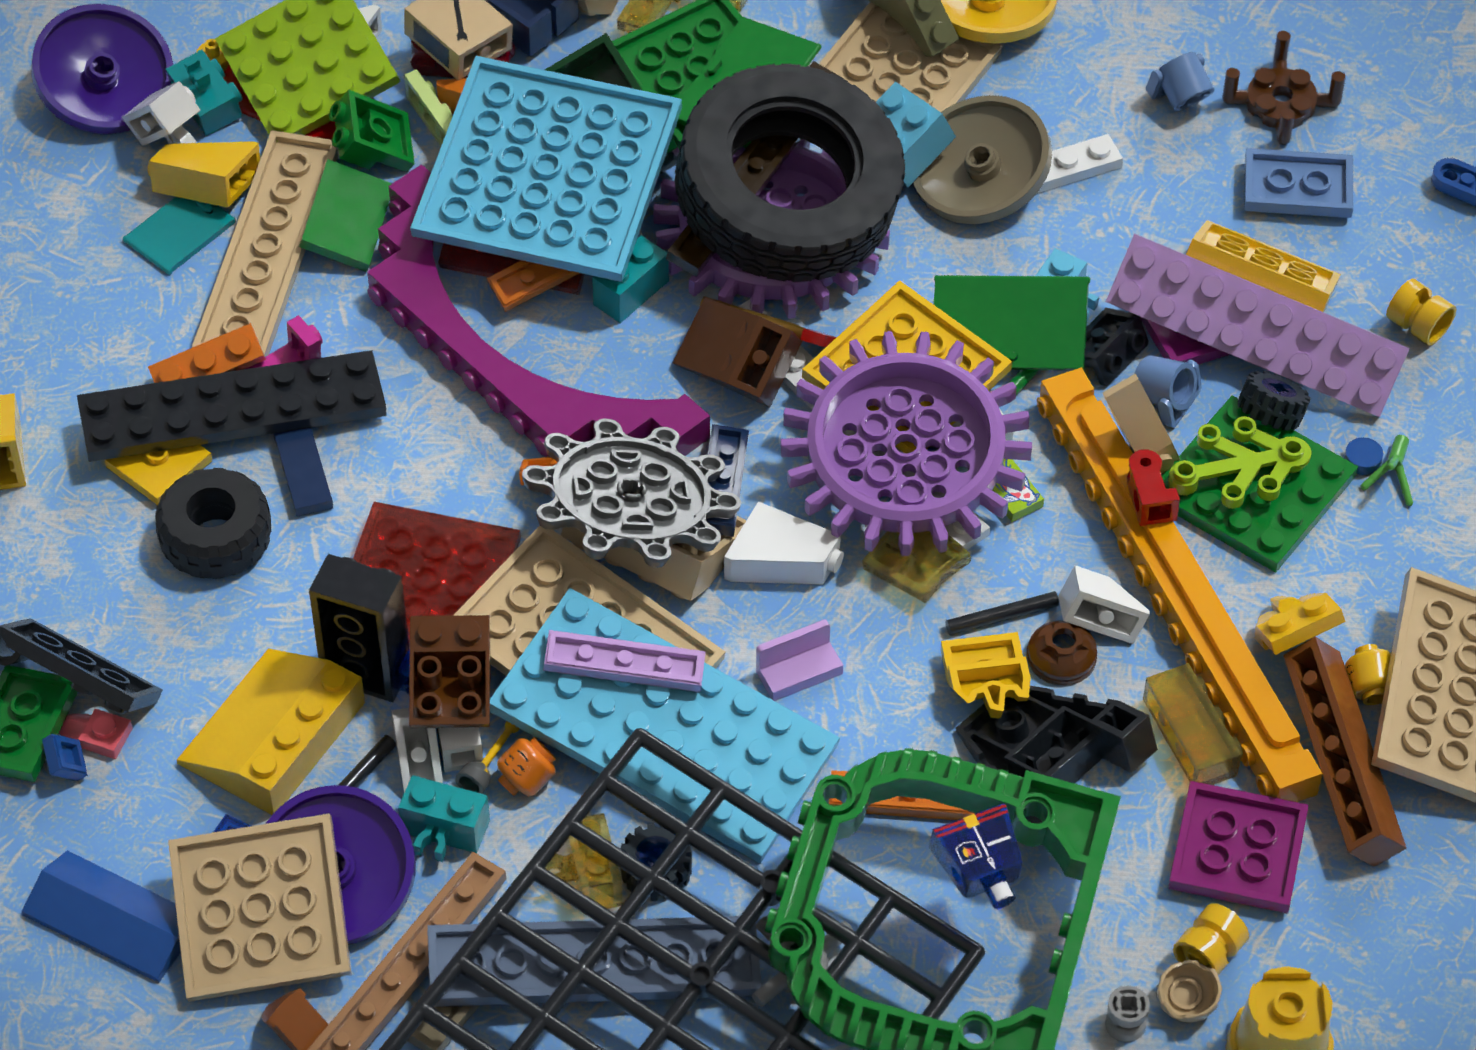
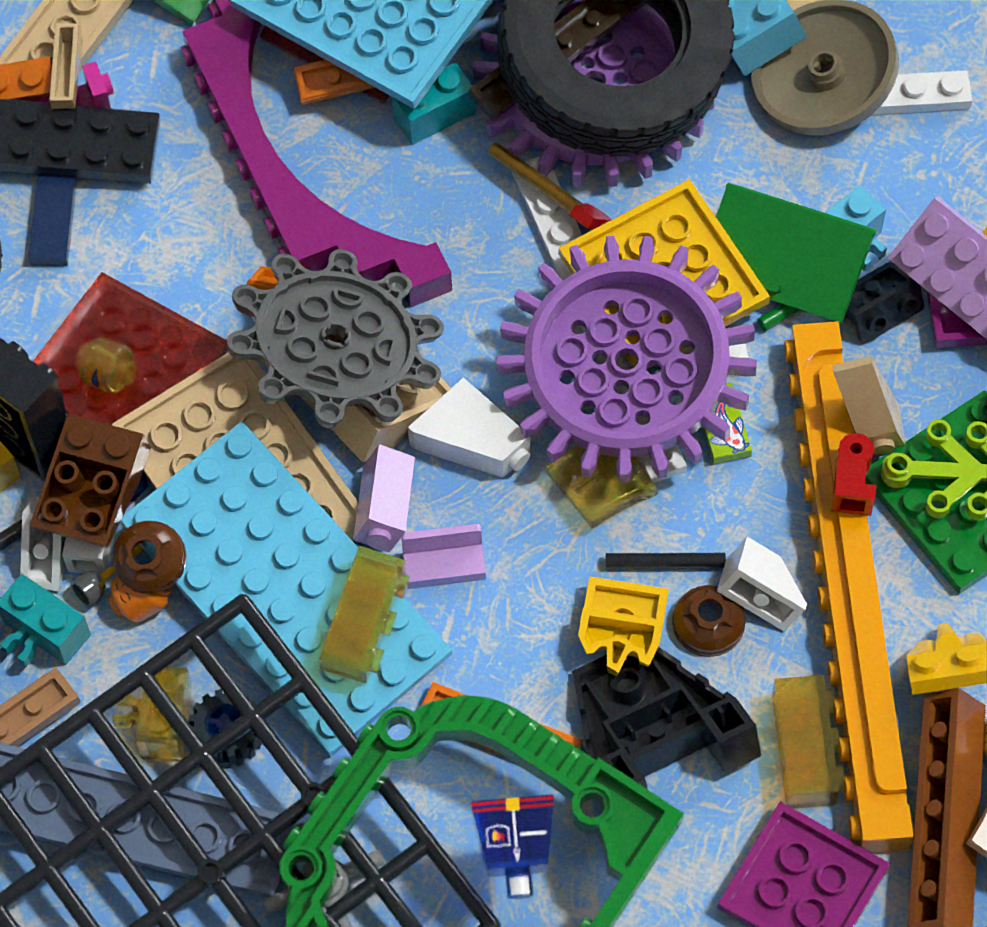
camera: 20 degrees right, 10 degrees up
(268, 328) = (65, 65): none -> tan piece
(421, 574) = (106, 365): none -> clear yellow head
(531, 743) = (163, 570): none -> reddish brown piece
(624, 661) = (264, 514): lavender tile -> none
(726, 623) = (384, 498): none -> brick
(731, 447) = (459, 315): dark blue tile -> none
(738, 351) = (506, 211): reddish brown slope -> none
(753, 722) = (364, 615): none -> clear yellow brick
(1170, 386) = (920, 364): medium blue piece -> none

